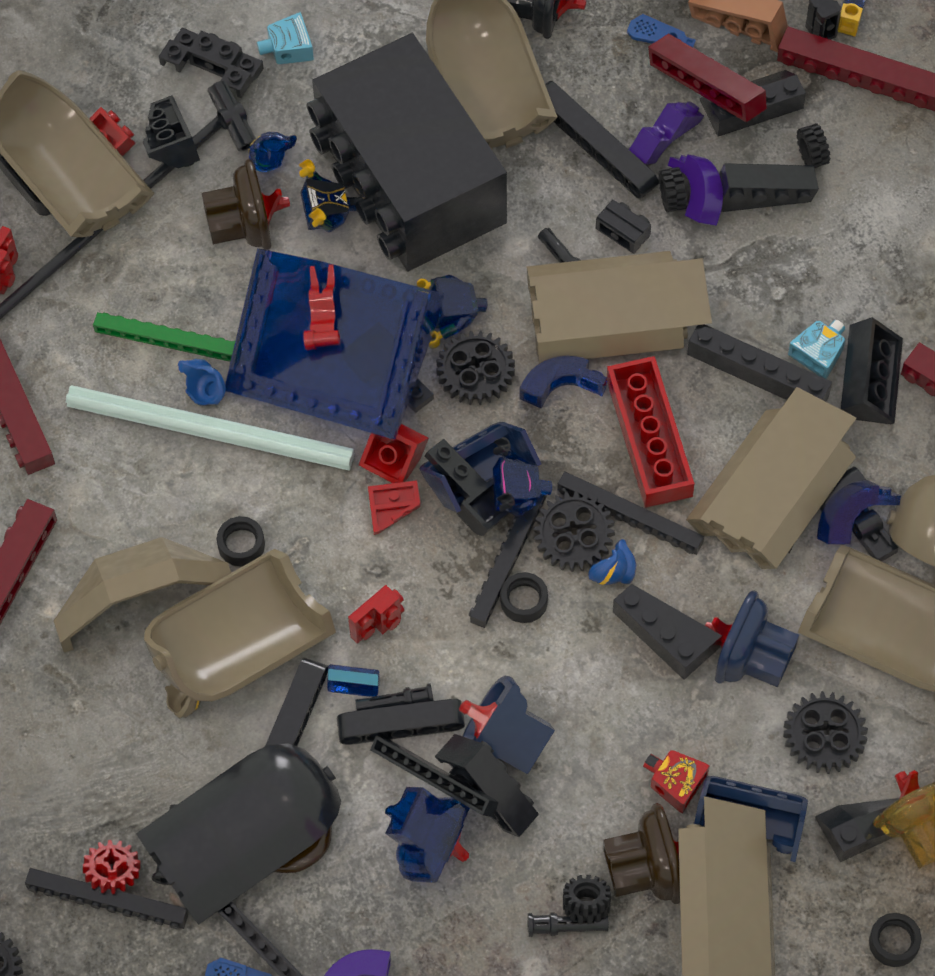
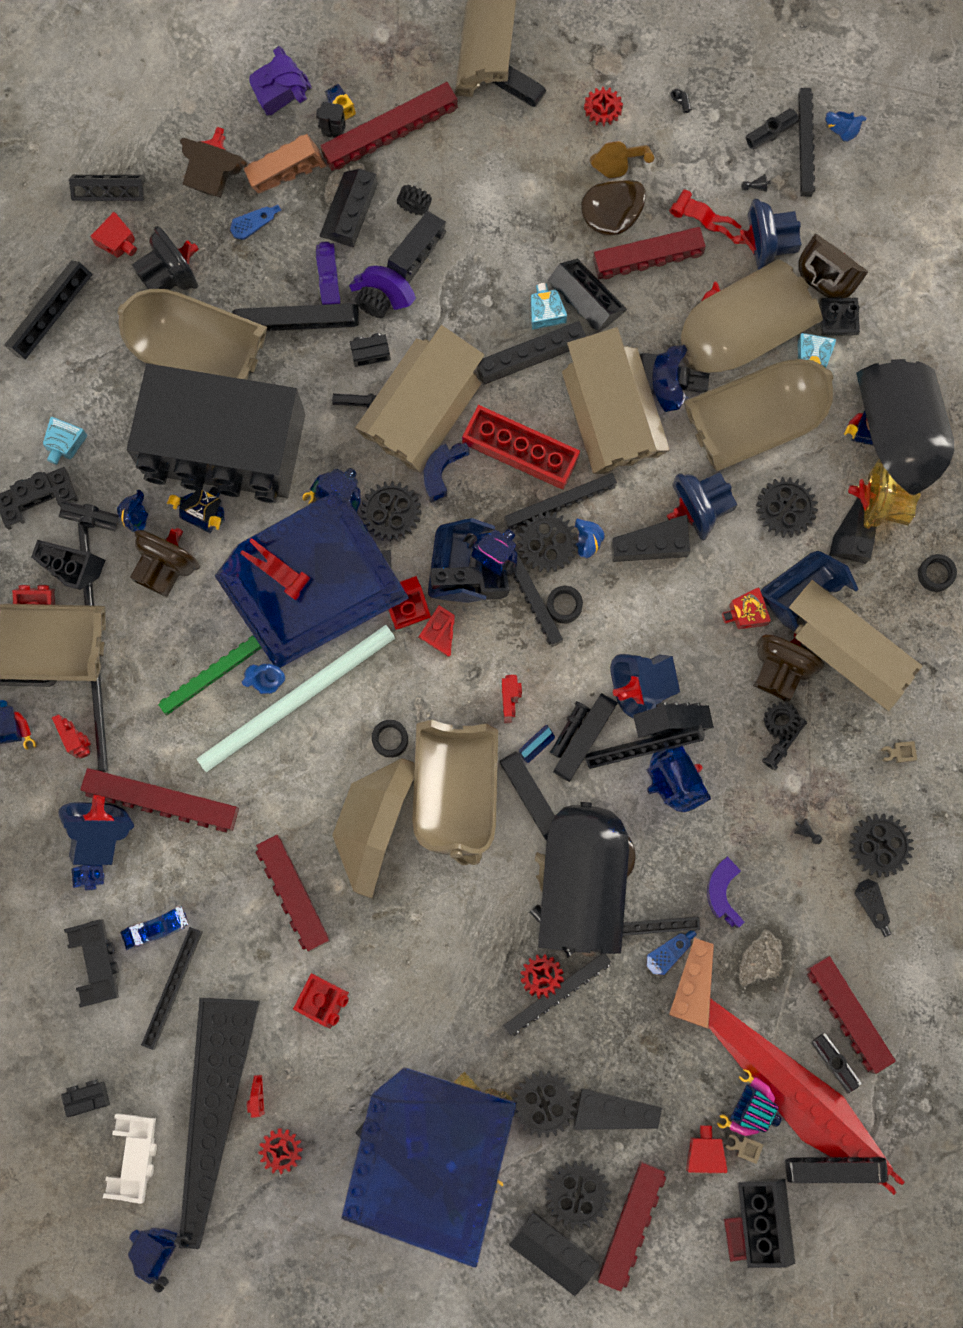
camera: 50 degrees left, 15 degrees up
(707, 77) = (317, 219): dark red brick -> none

